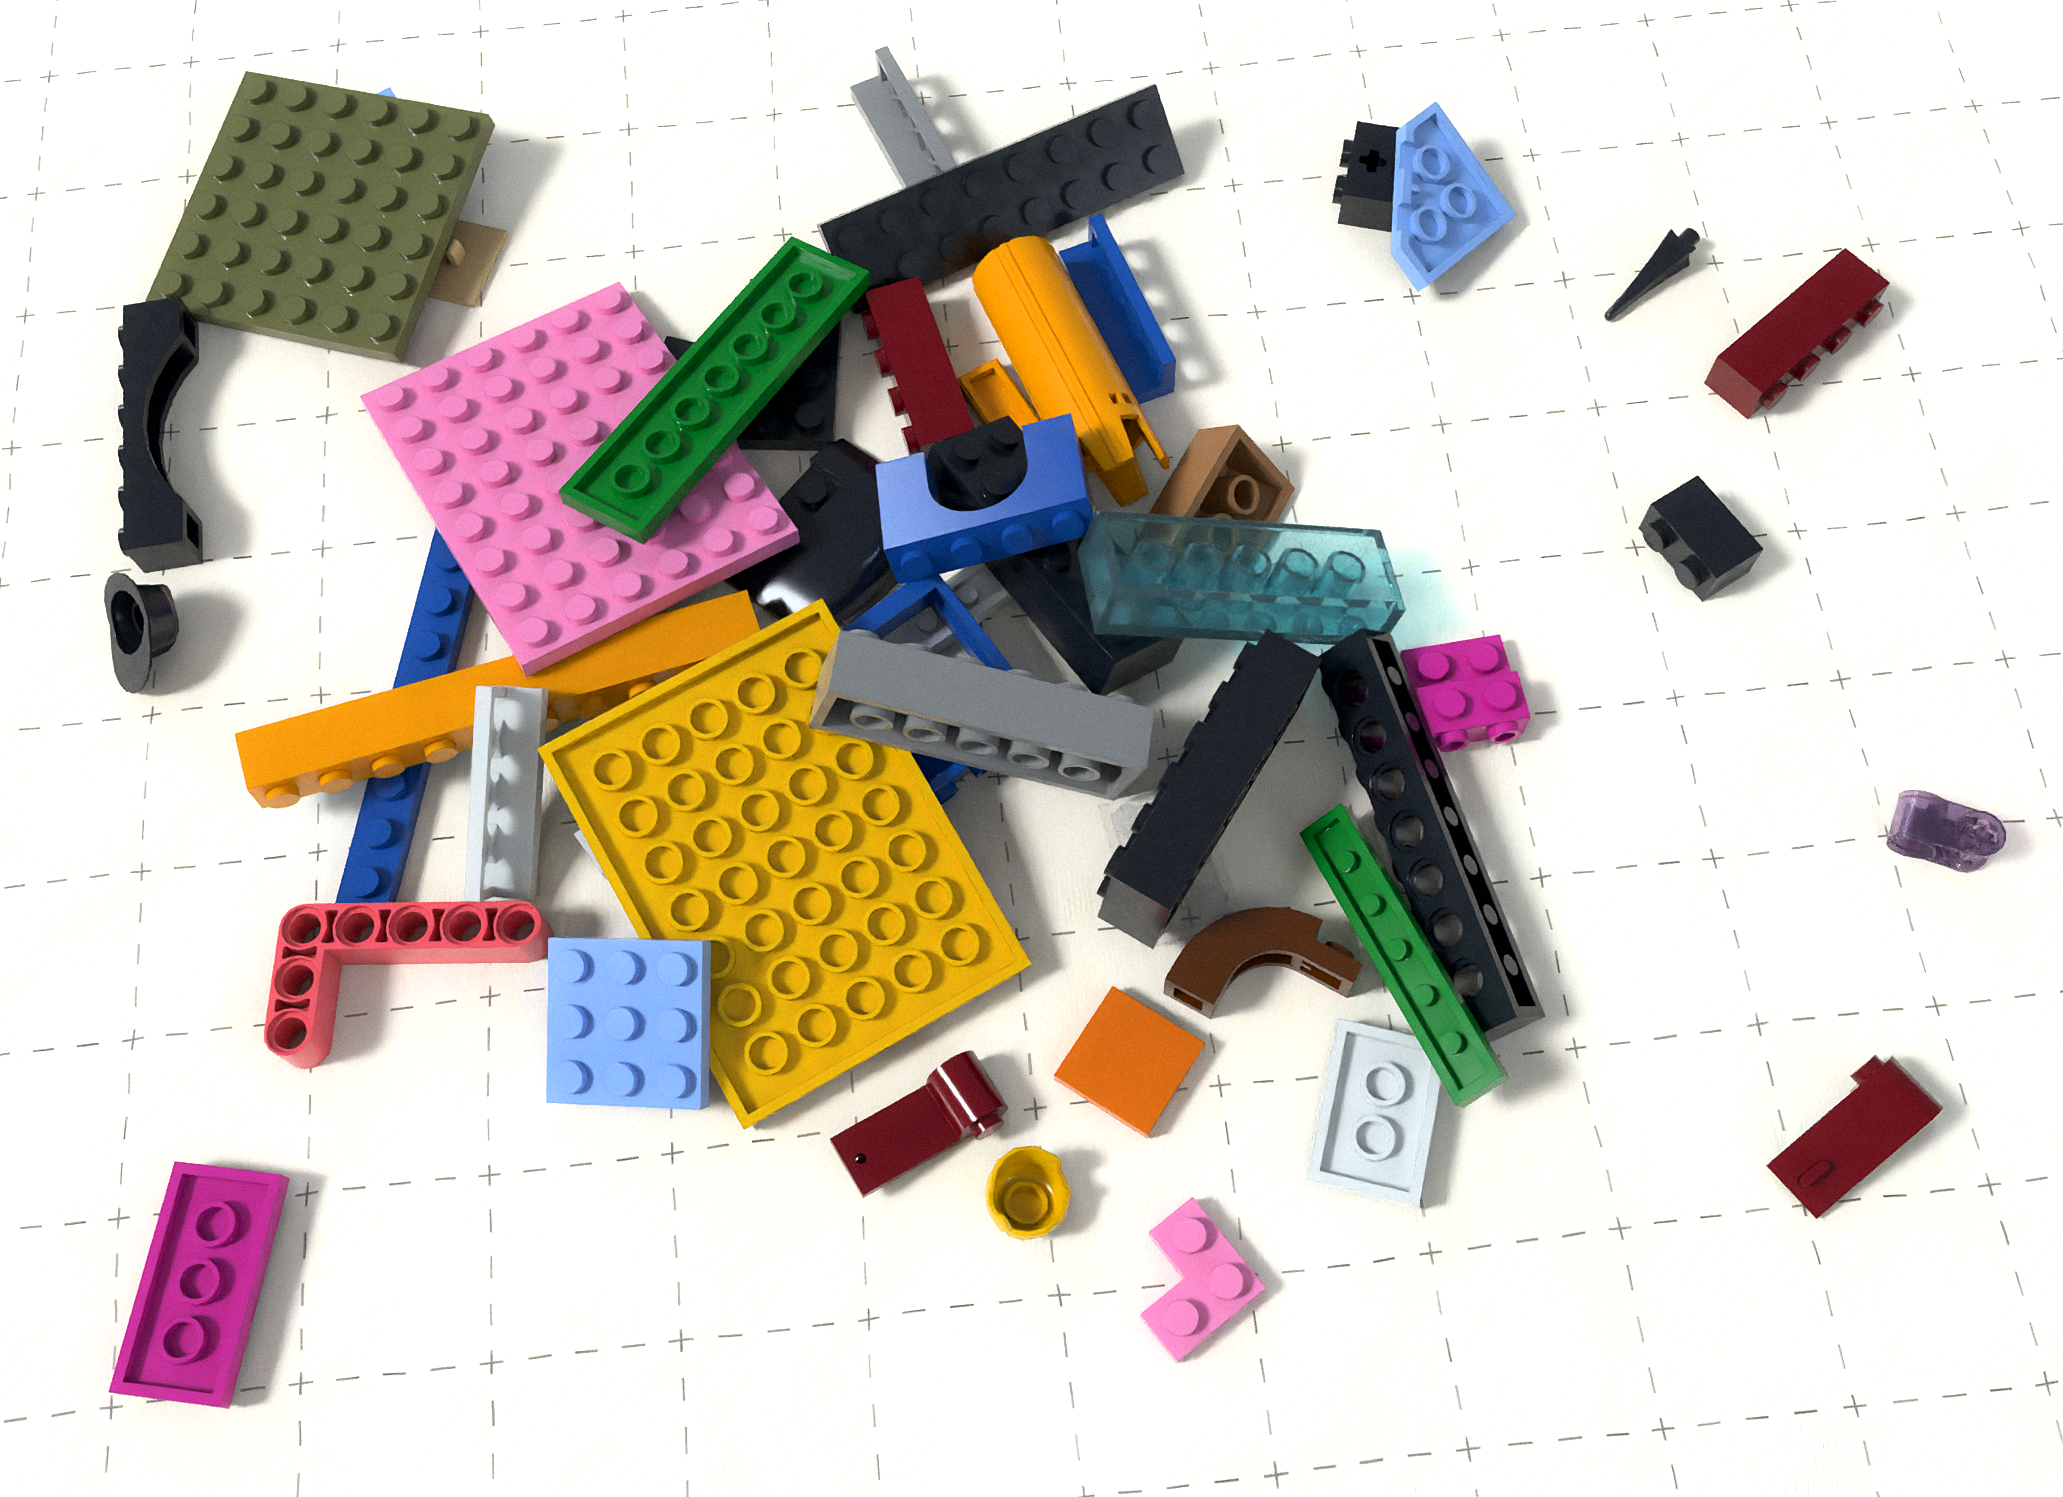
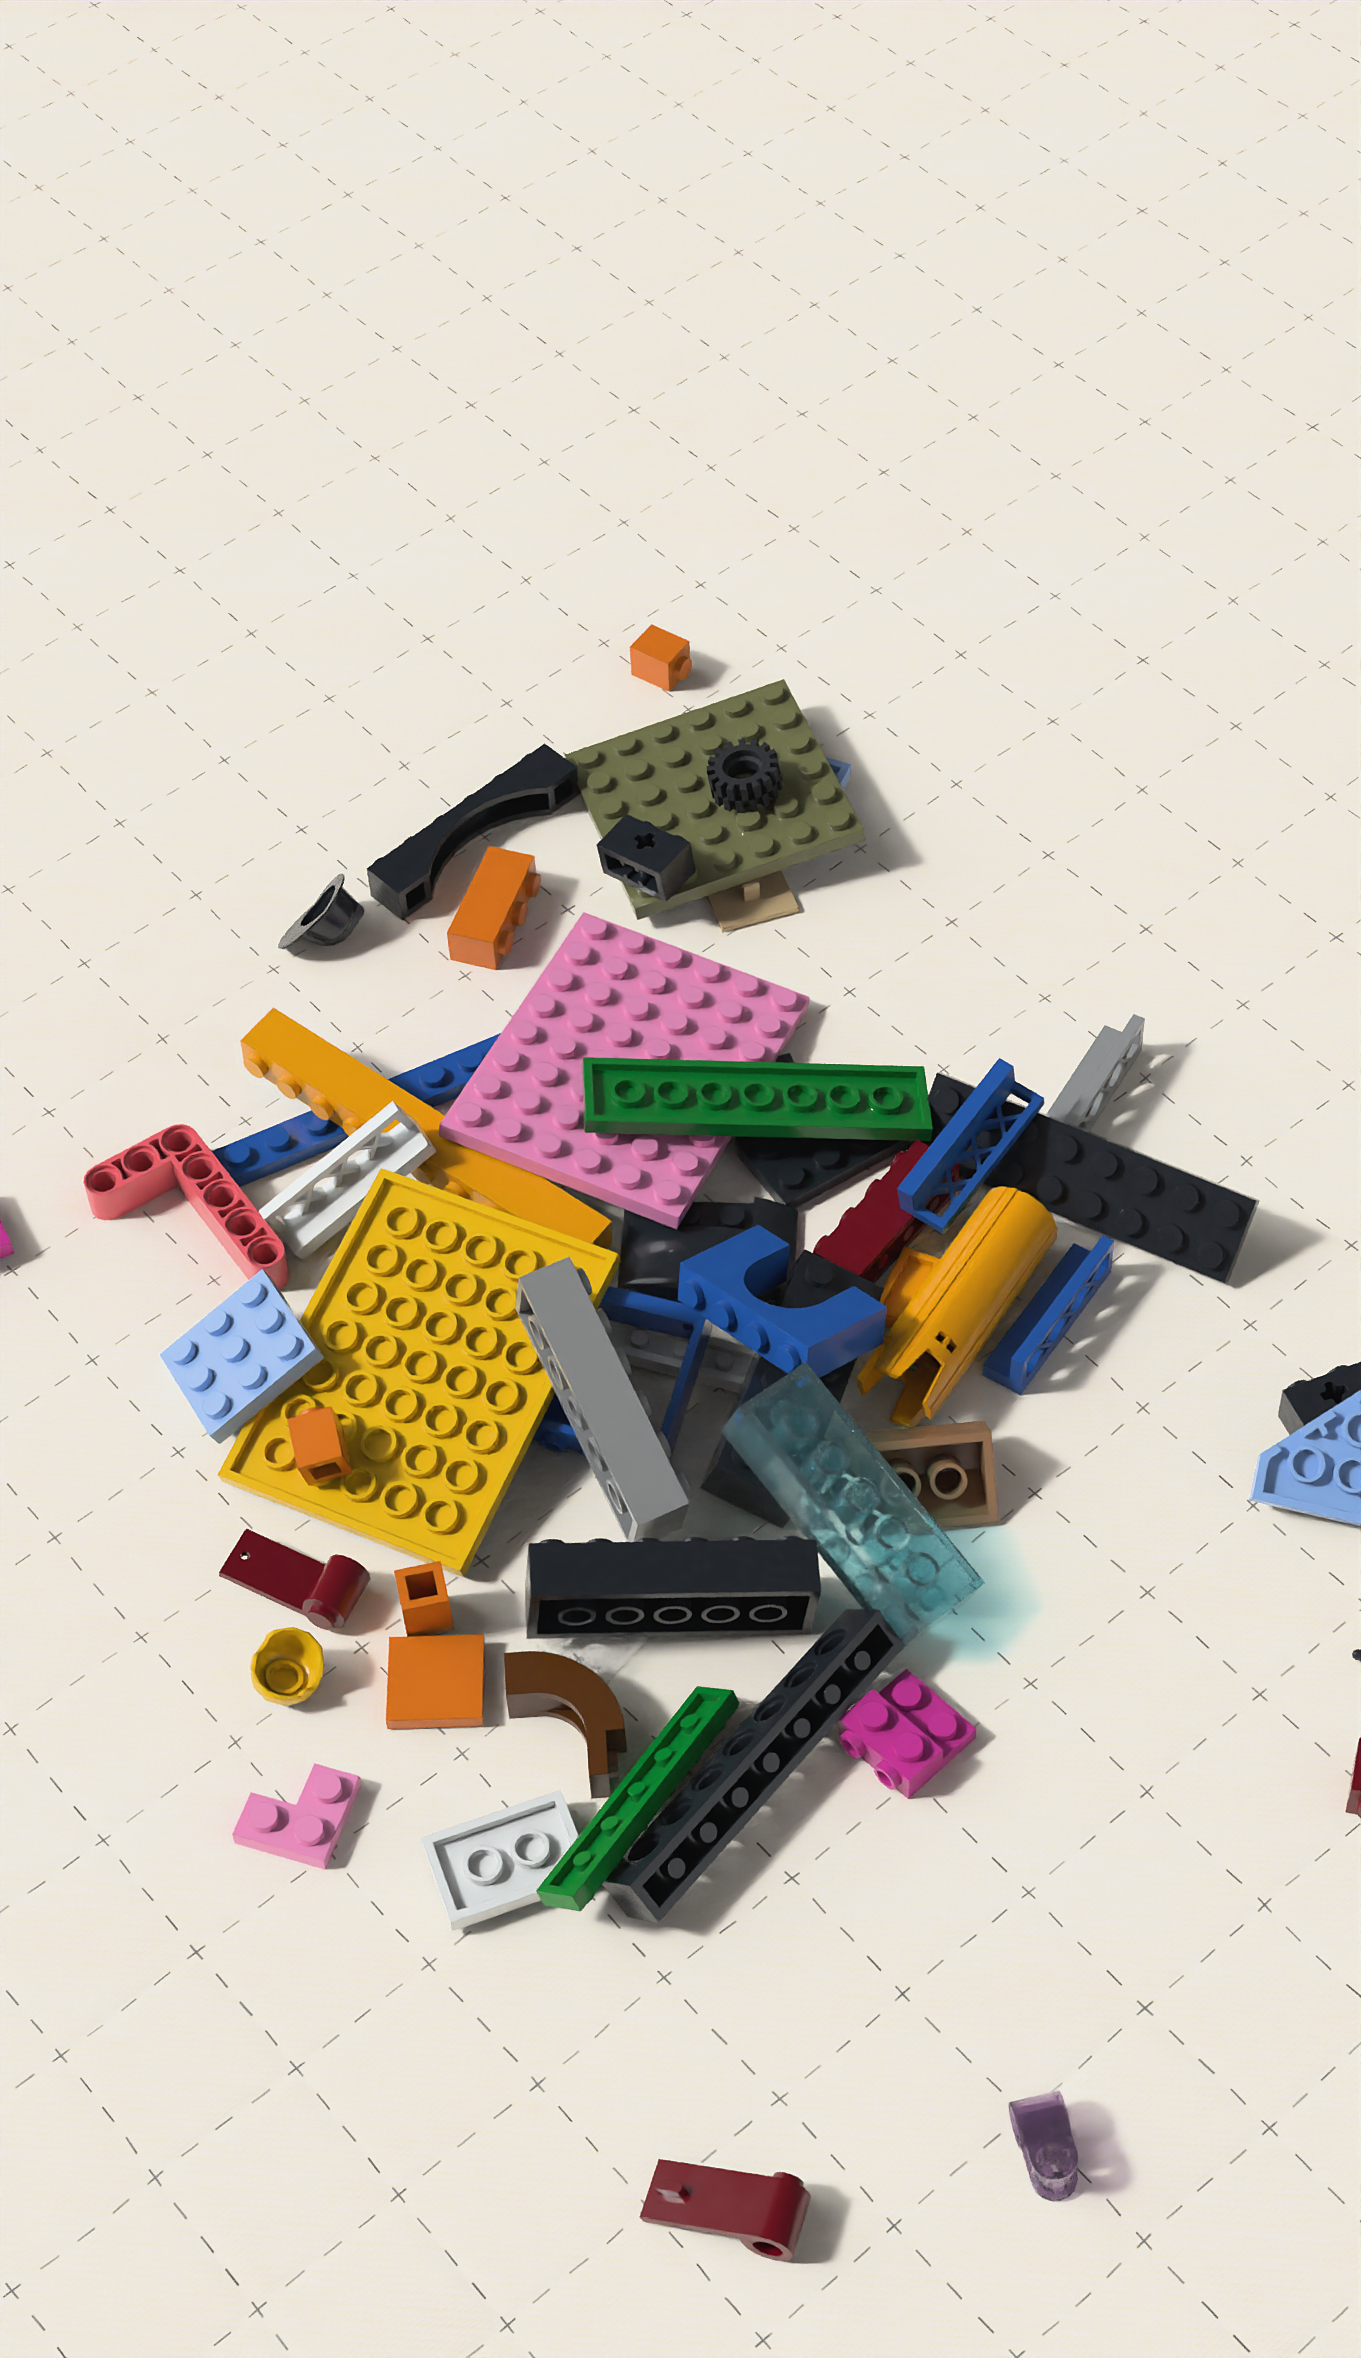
camera: 55 degrees right, 15 degrees down
(111, 154) = (660, 658): none -> orange brick
(274, 471) = (493, 908): none -> orange brick
(326, 146) = (749, 790): none -> black tyre
(354, 301) = (646, 857): none -> black brick
(804, 1006) = (319, 1445): none -> orange brick
(913, 251) = (958, 1136): none -> blue fence
(1046, 1016) = (424, 1599): none -> orange brick
(1699, 538) = (1180, 1823): black brick -> none

